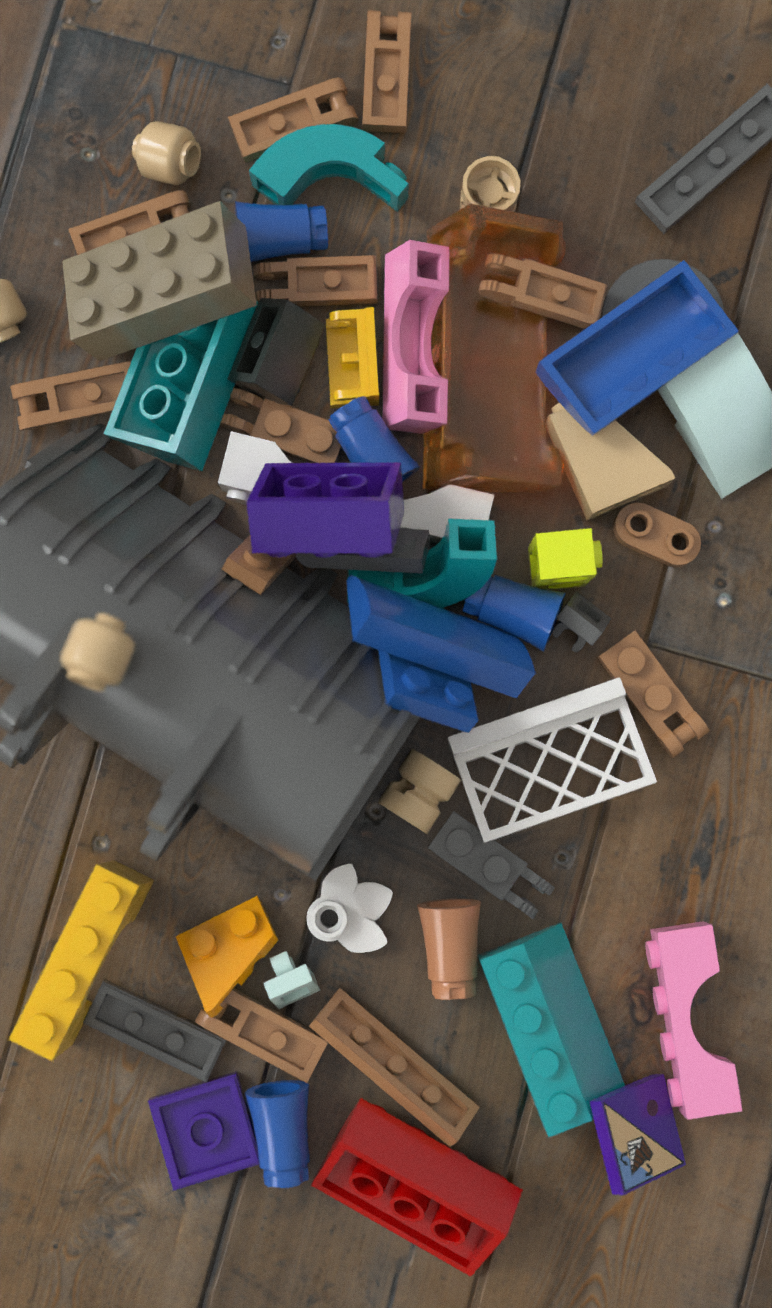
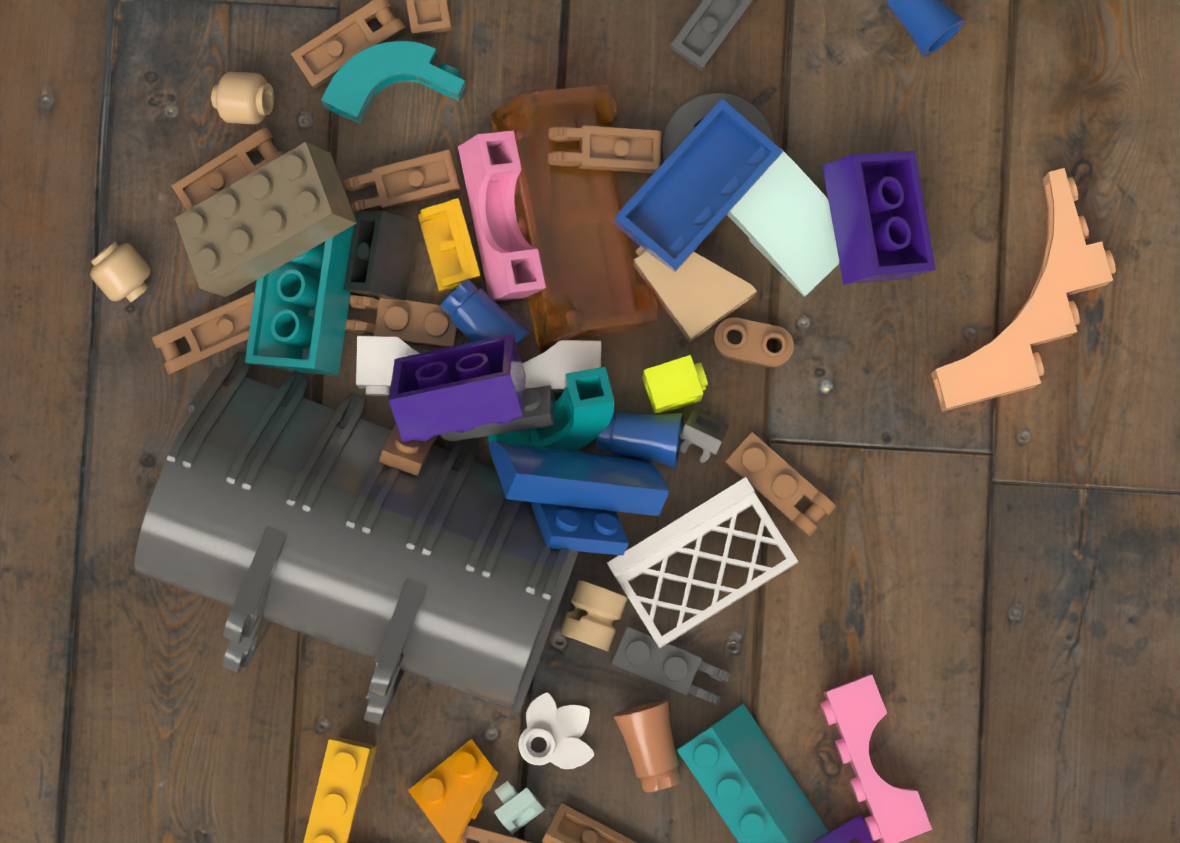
camera: 10 degrees left, 0 degrees up
(97, 652) = (296, 558): tan head -> none
(282, 229) = (361, 143): blue plant -> none
(491, 184) = (538, 68): tan wheel -> none

